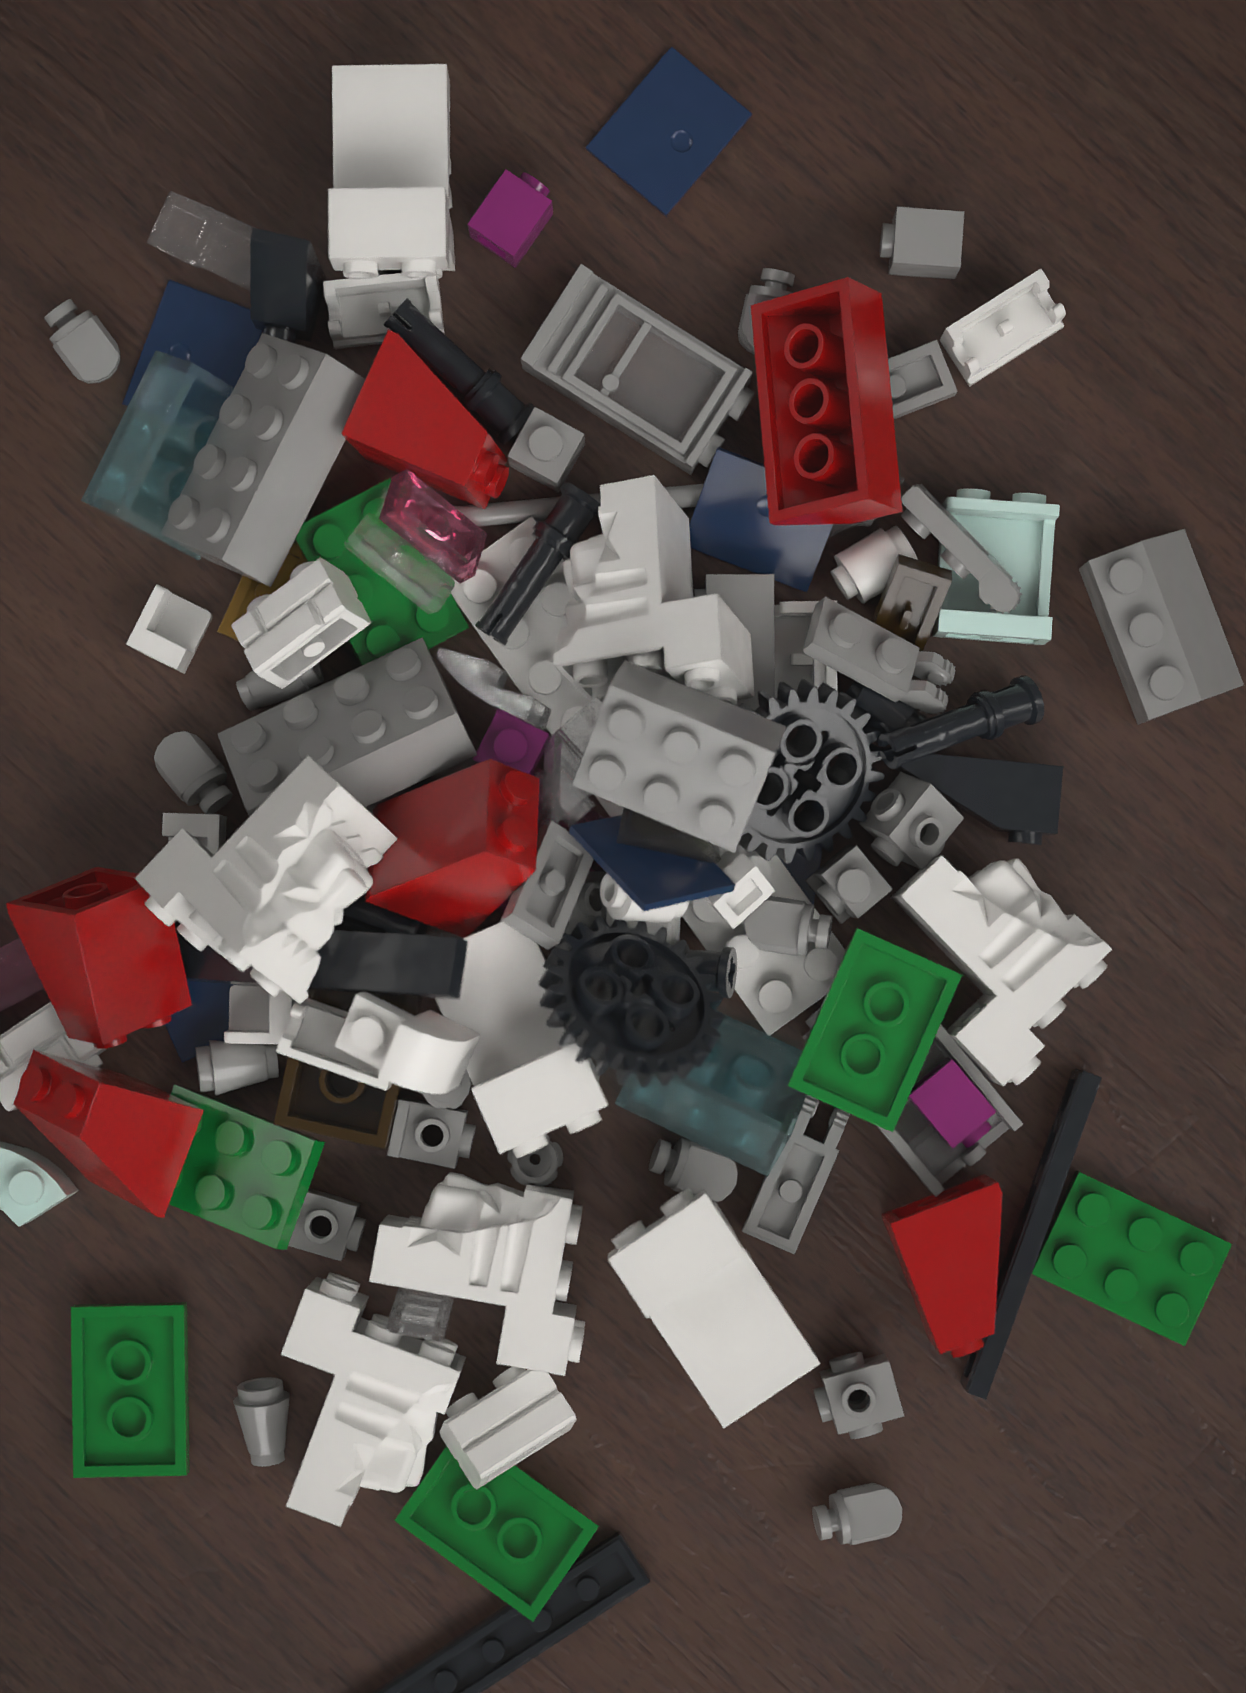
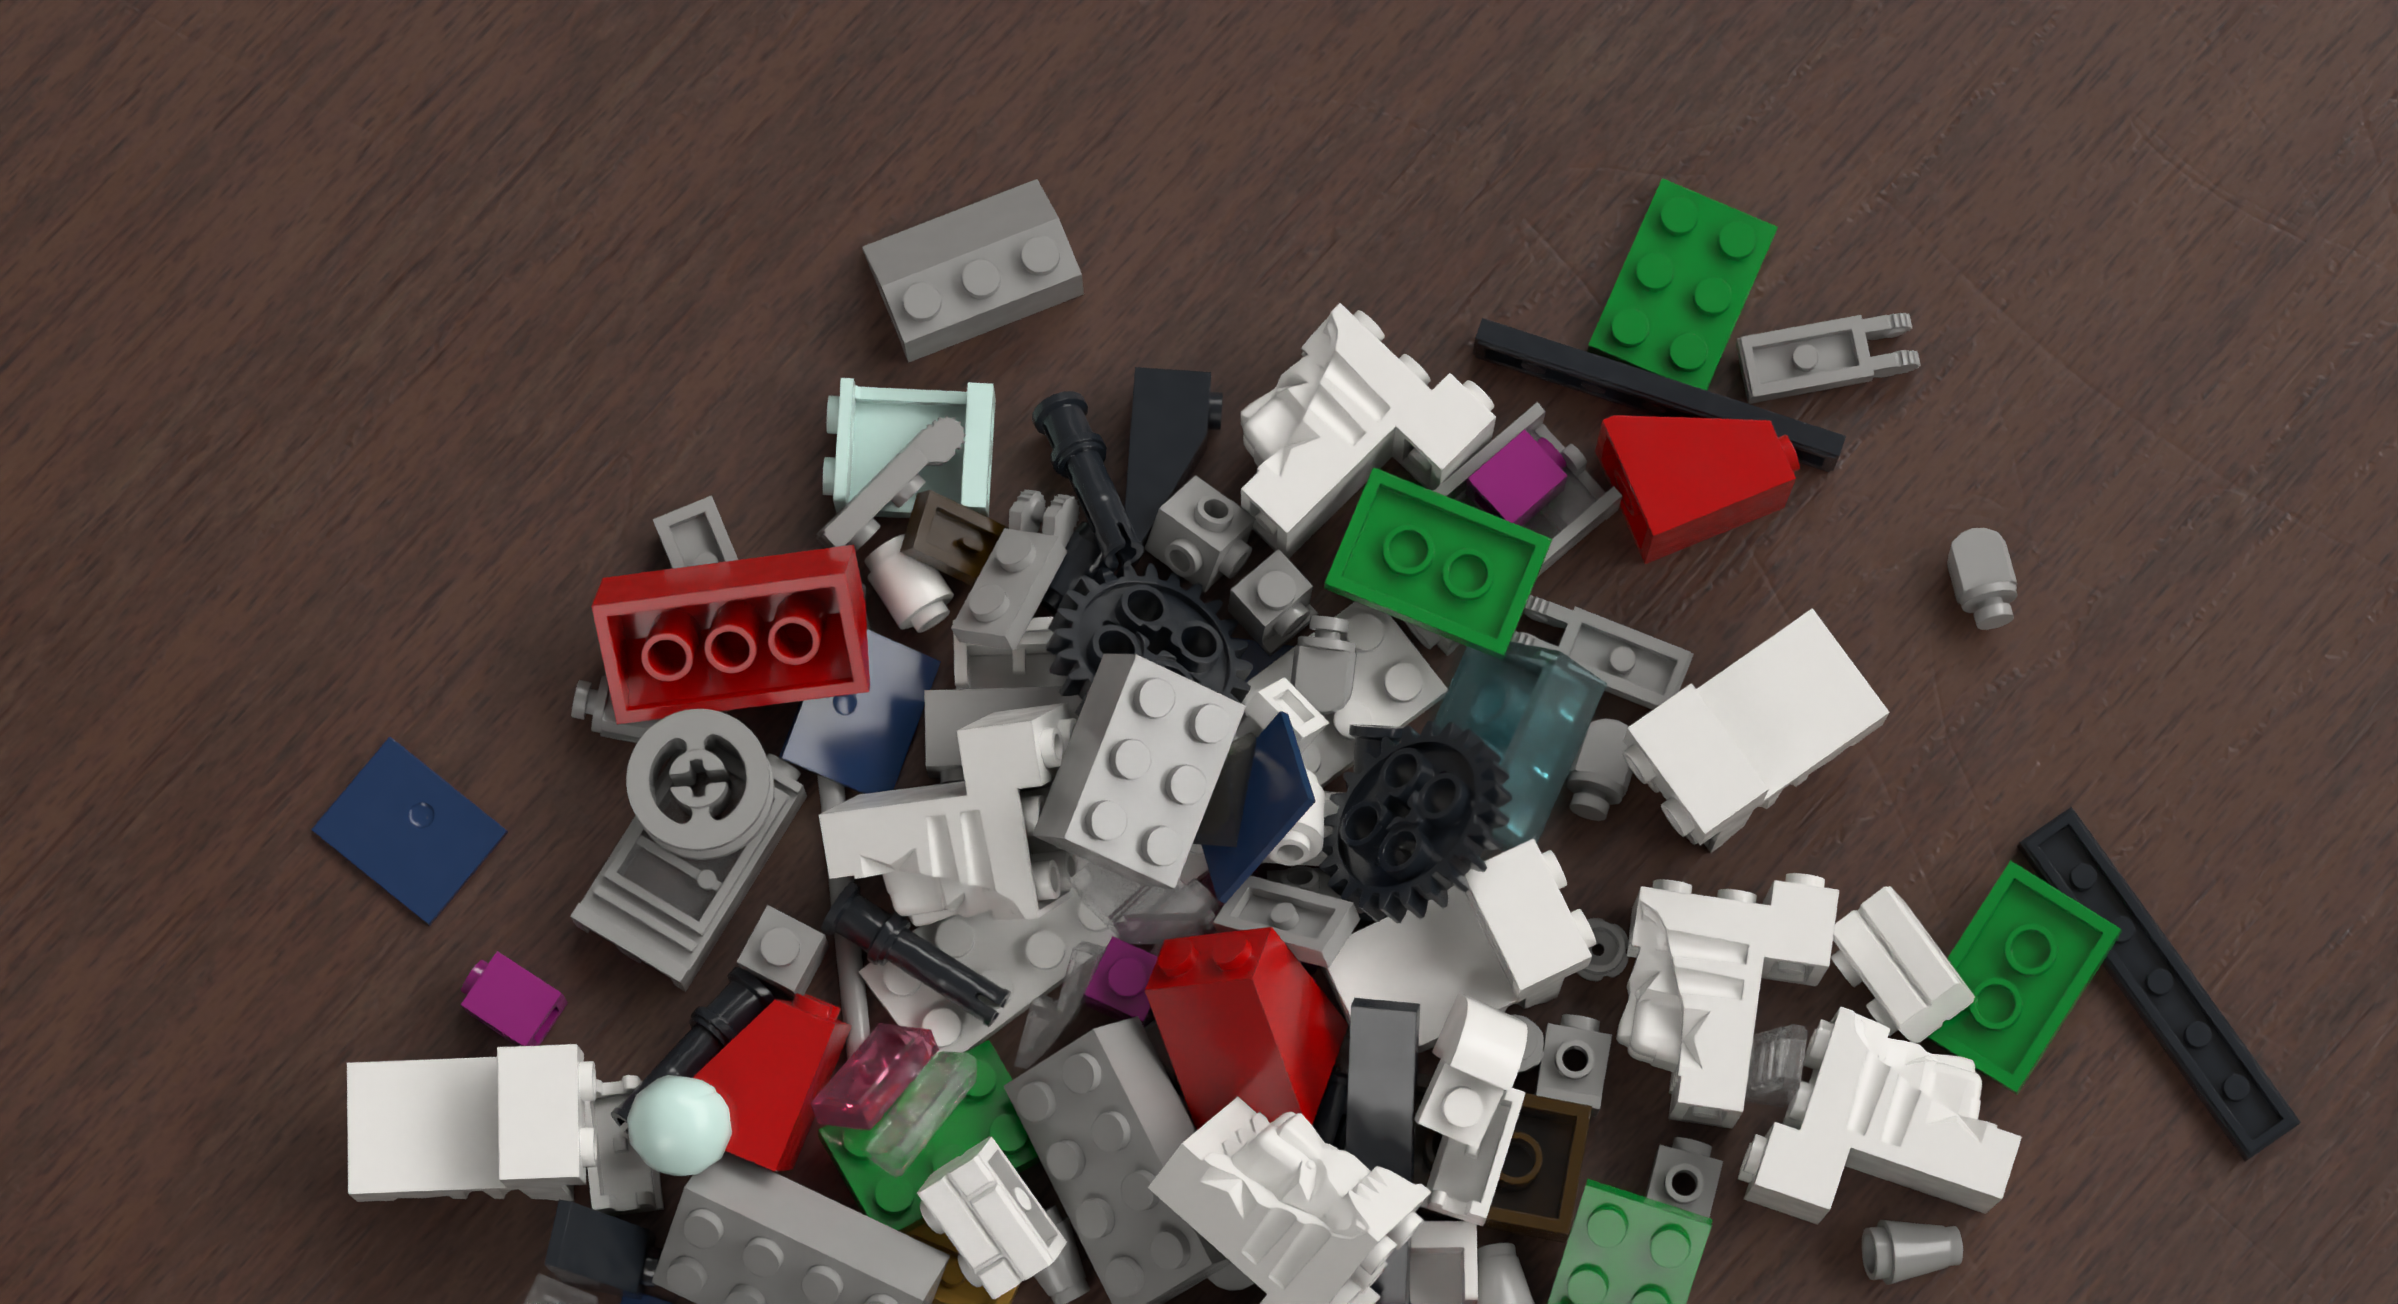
camera: 90 degrees left, 10 degrees down
(379, 349) = (679, 1125): none -> light aqua hair
(733, 372) = (698, 733): none -> light grey wheel
(877, 1404) = (1851, 556): light grey brick -> none
(923, 242) = (541, 537): light grey brick -> none
(1003, 328) = (638, 448): white hinge -> none
(1063, 1378) = (1821, 356): none -> light grey hinge

